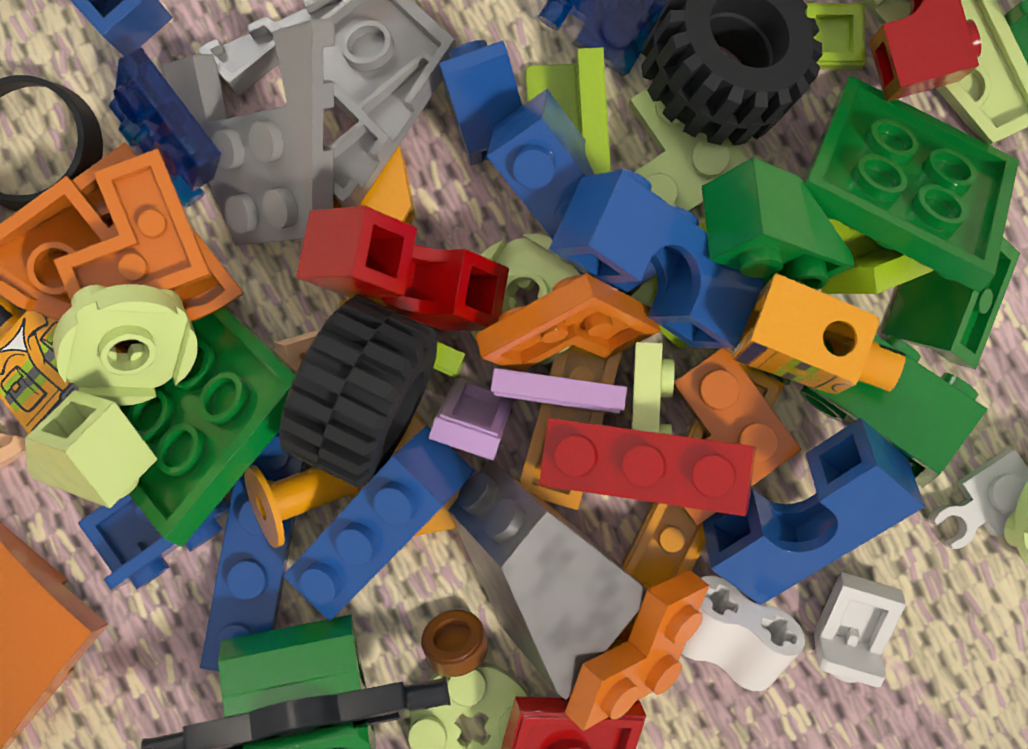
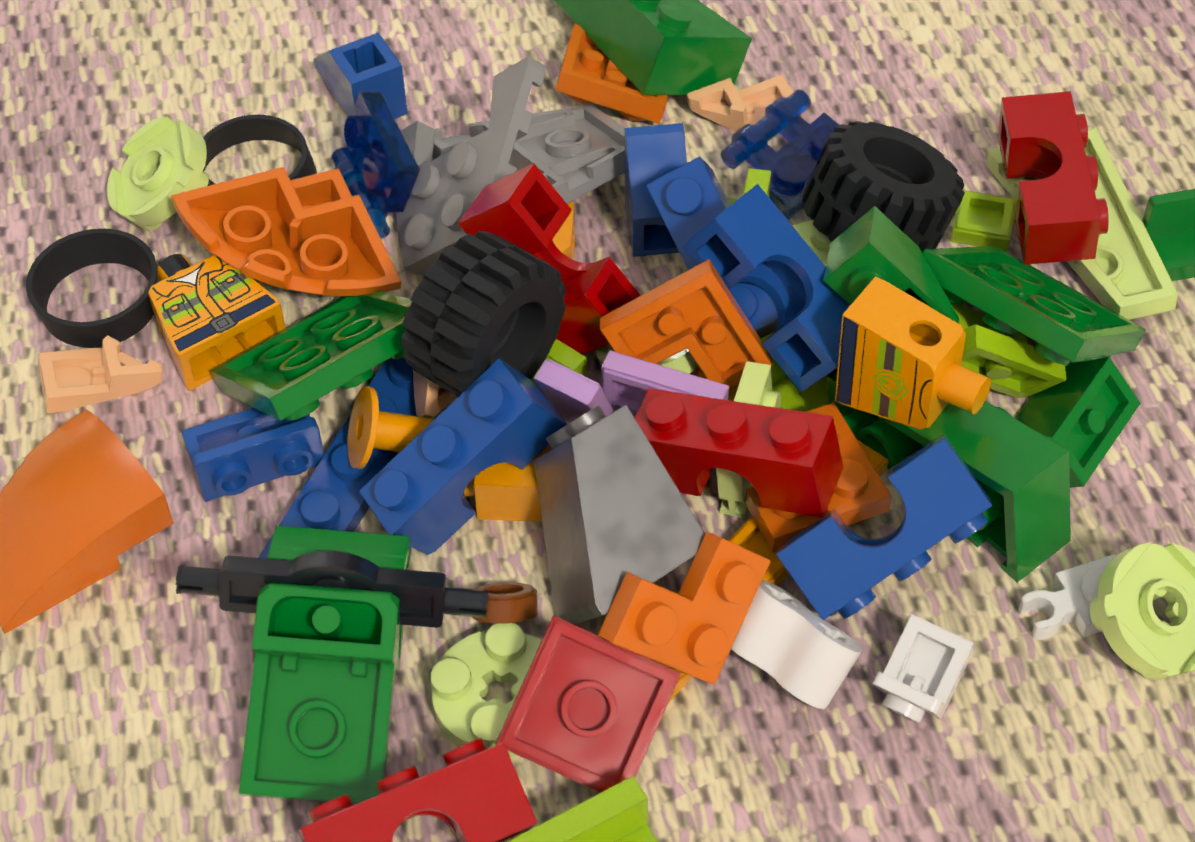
camera: 20 degrees right, 35 degrees down
(88, 450) = (222, 335): yellowish green slope -> none
(118, 313) = (299, 306): yellowish green plate -> none
(154, 233) = (330, 225): orange plate -> none

